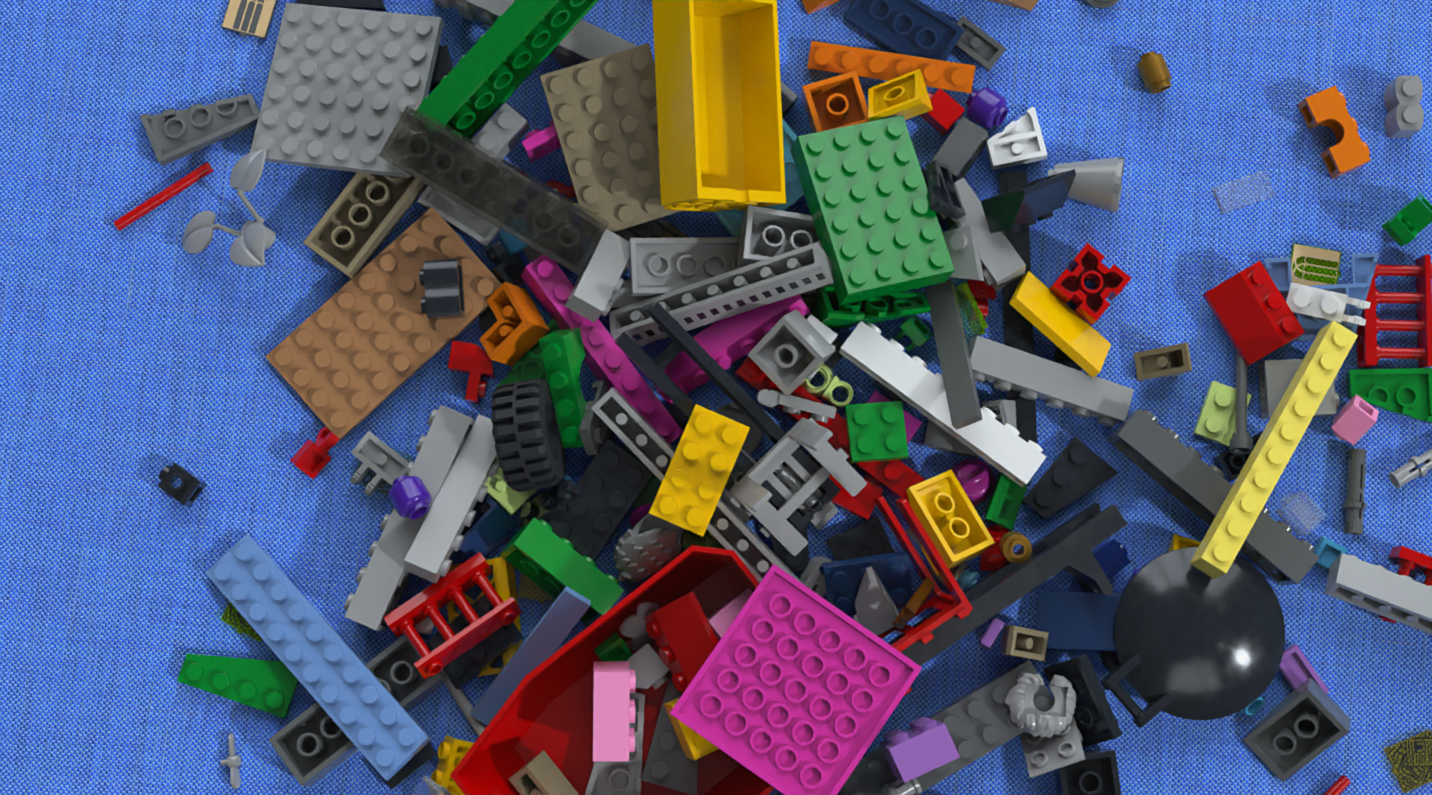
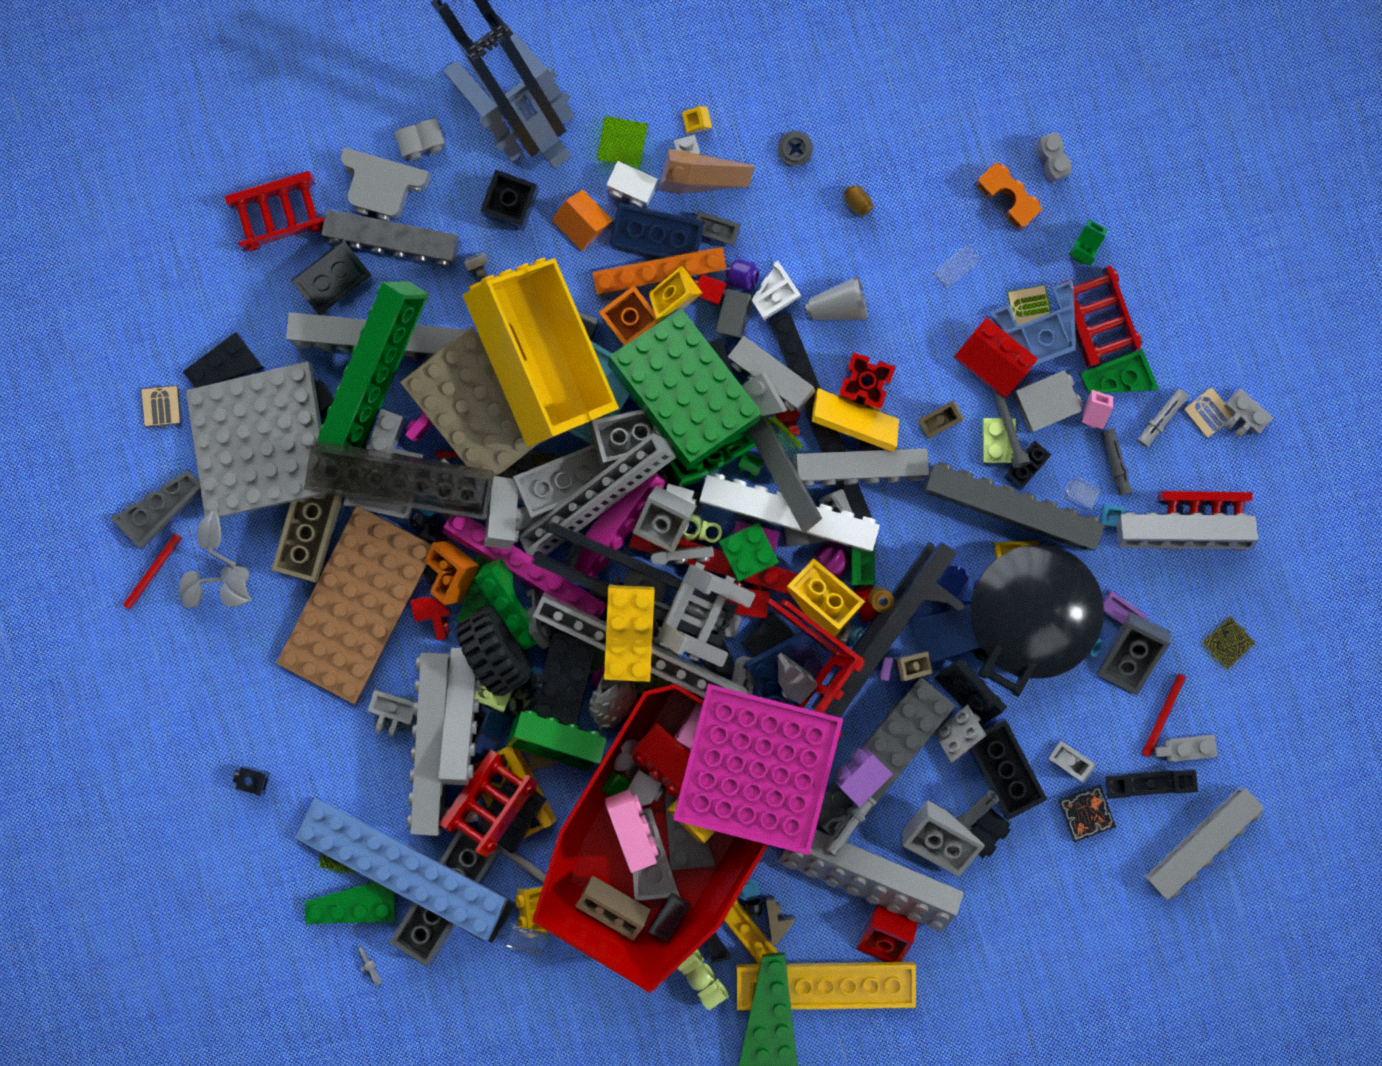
camera: 20 degrees left, 5 degrees up
(313, 456) = (341, 723): red plate -> none
(410, 497) = (424, 730): dark purple head -> none
(442, 289) = (389, 566): black brick -> none
(535, 649) = (557, 809): medium blue tile -> none
(913, 604) = (822, 668): reddish brown tile -> none
(943, 191) = (732, 354): black wing -> none
(1027, 202) = (797, 338): black slope -> none
(1029, 717) = (944, 720): light grey piece -> none
(1067, 479) = (902, 531): black wing -> none
(1273, 450) = (1044, 458): light yellow brick -> none
(1324, 304) = (1044, 332): white hinge -> none

